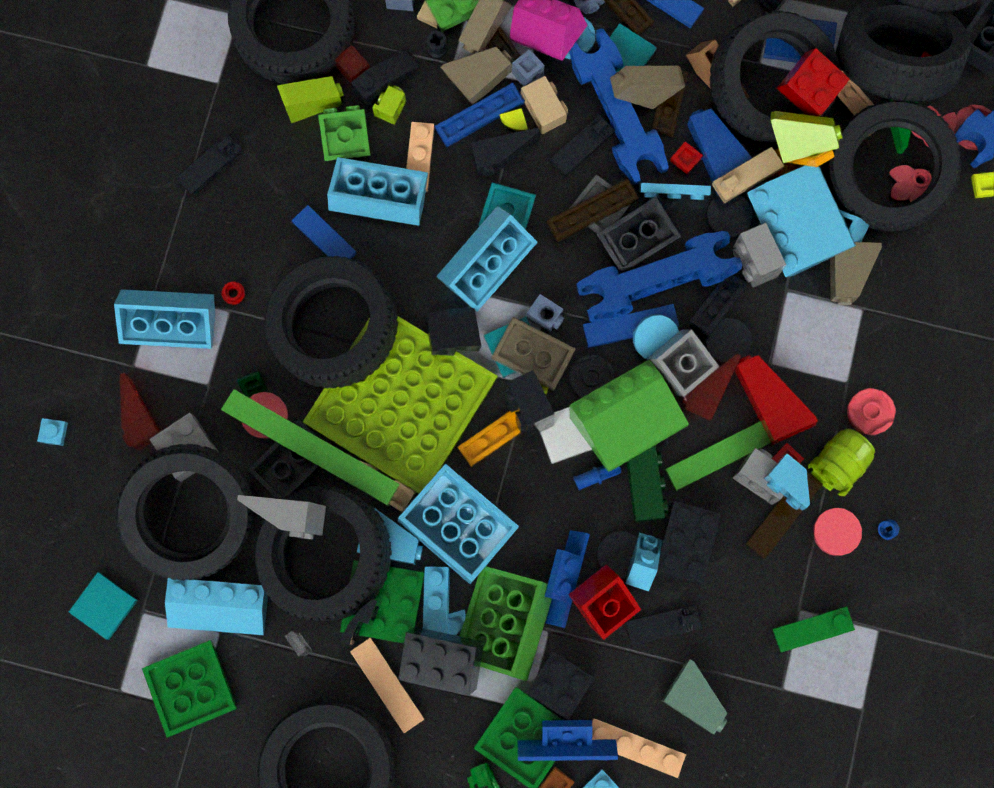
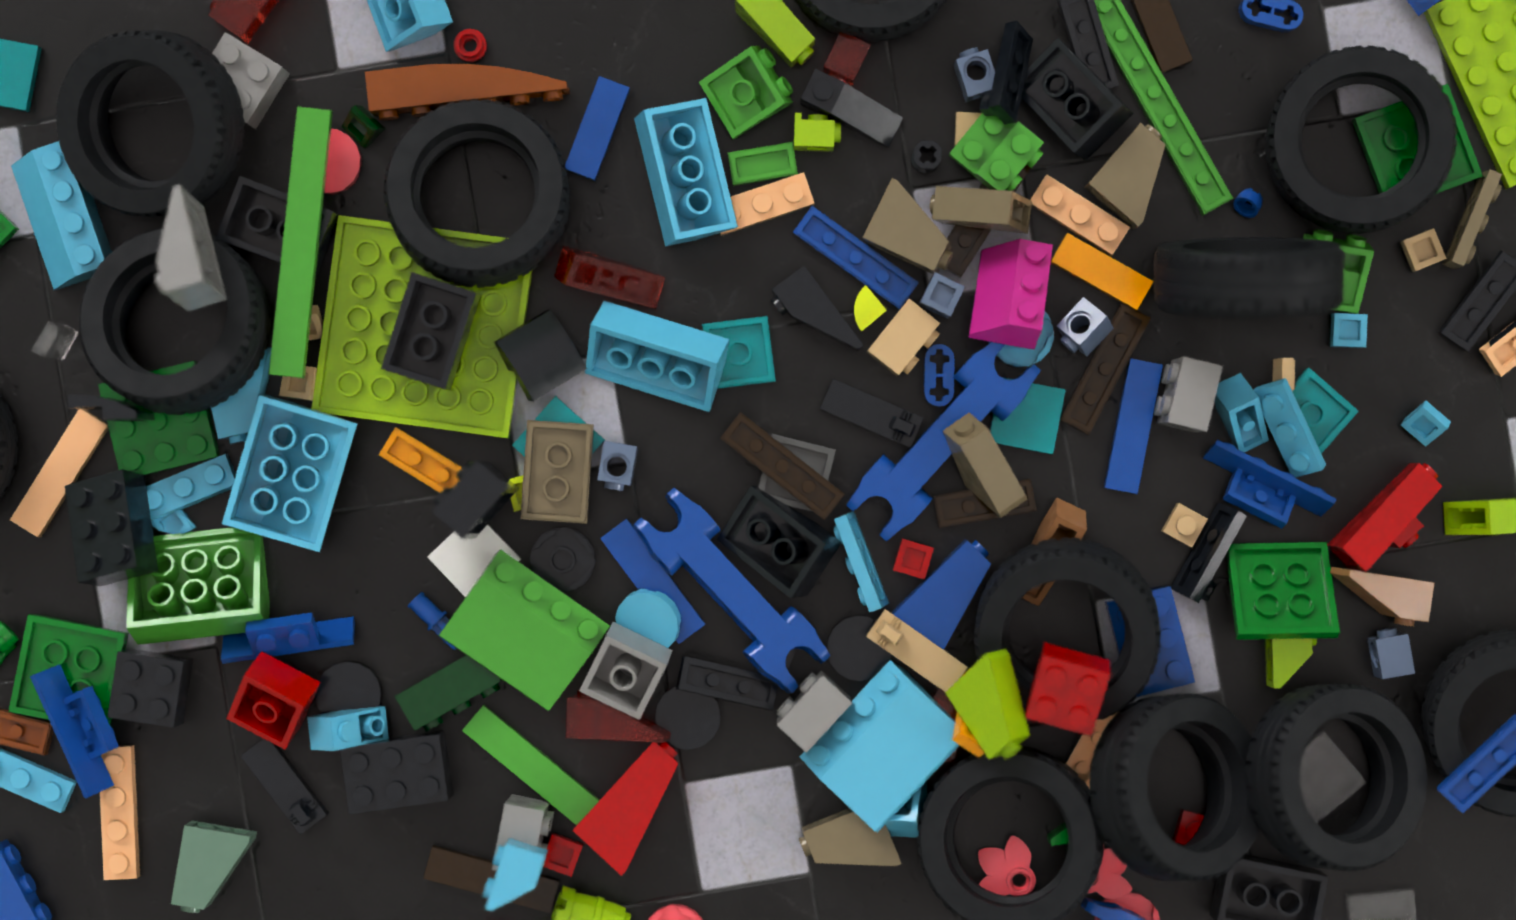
camera: 65 degrees right, 10 degrees up
(248, 324) = (433, 85): none -> dark orange slope
(394, 144) = (762, 164): none -> bright green tile
(407, 389) = (431, 331): none -> black brick
(422, 268) = (608, 277): none -> clear red slope
(579, 91) = (930, 375): none -> blue beam

